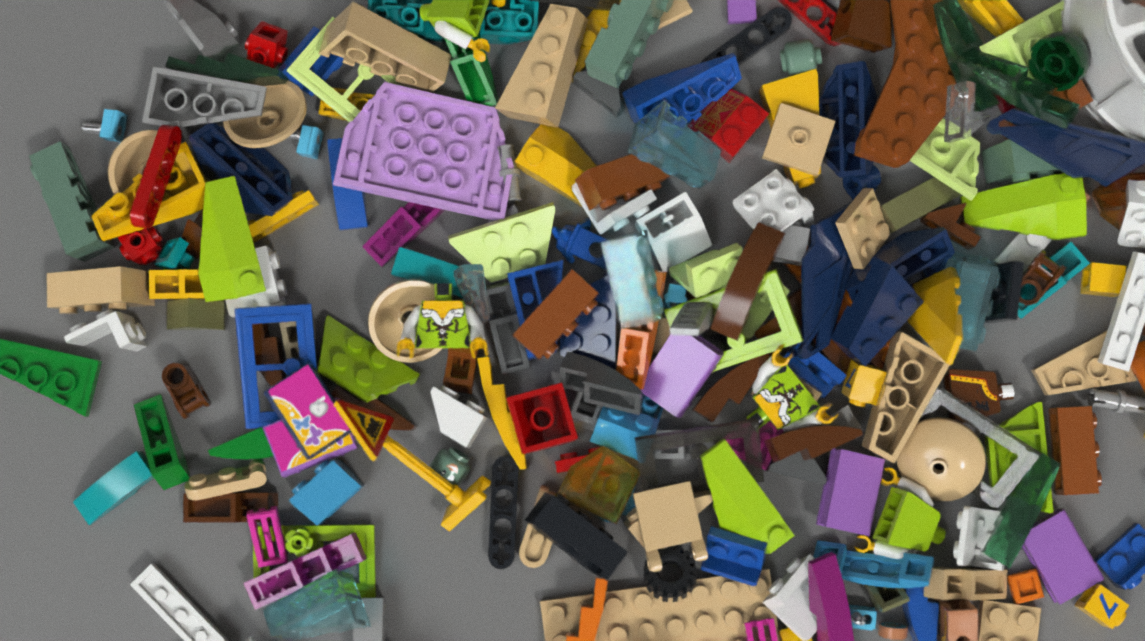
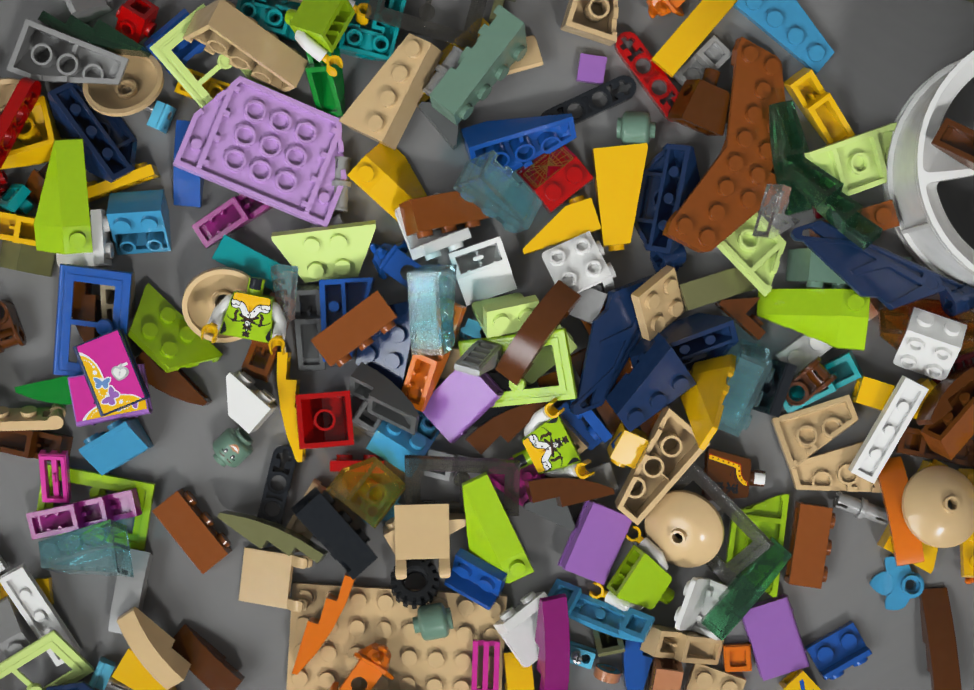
camera: 20 degrees right, 5 degrees up
(302, 535) = (86, 480): lime plate -> none
(307, 253) = (139, 221): none -> dark azure slope
(372, 433) = (164, 404): yellow piece -> none
(423, 565) = (193, 530): none -> dark orange brick
(499, 551) = (262, 532): none -> olive slope
(514, 602) = (268, 578): none -> tan flag
(591, 35) = (450, 61): none -> light grey pin
(699, 610) = (433, 621): none -> sand green head
(746, 172) = (567, 224): none -> yellow slope
(798, 139) = (615, 207): tan plate -> none
(1049, 328) = (812, 428): none -> tan wing
(1059, 60) = (875, 182): dark green cylinder -> none

